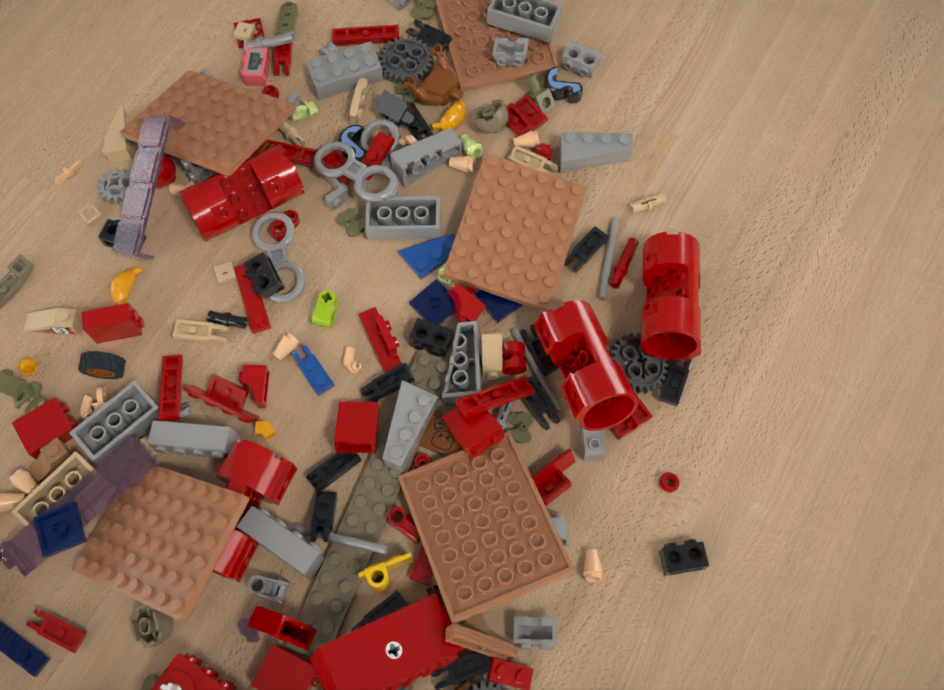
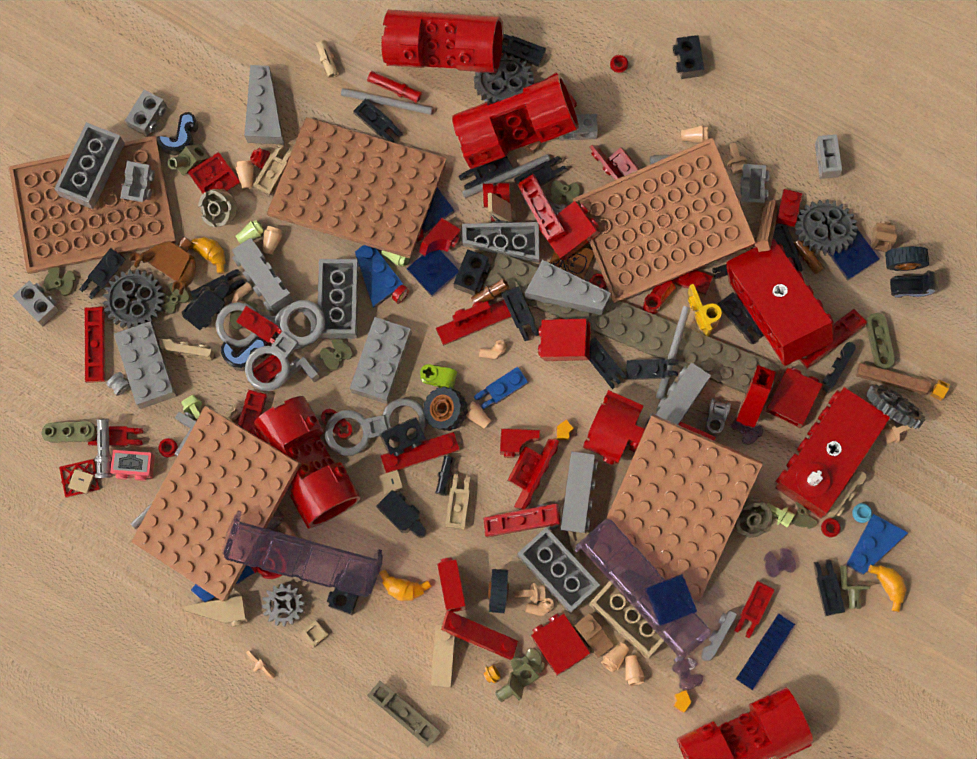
camera: 85 degrees left, 10 degrees up
(31, 589) = (717, 636): none -> light grey hinge
(61, 350) = (479, 635): none -> red plate
(103, 667) = (786, 563): none -> piece
(152, 664) = (784, 516): none -> yellowish green piece
(190, 281) = (400, 514): none -> black hinge
(290, 314) = (435, 406): none -> black wheel
(342, 258) = (381, 360): none -> light grey brick
(409, 273) = (400, 294): none -> red tile
(409, 354) = (491, 292): none -> dark orange pin
(562, 612) = (737, 161): none -> light nougat piece

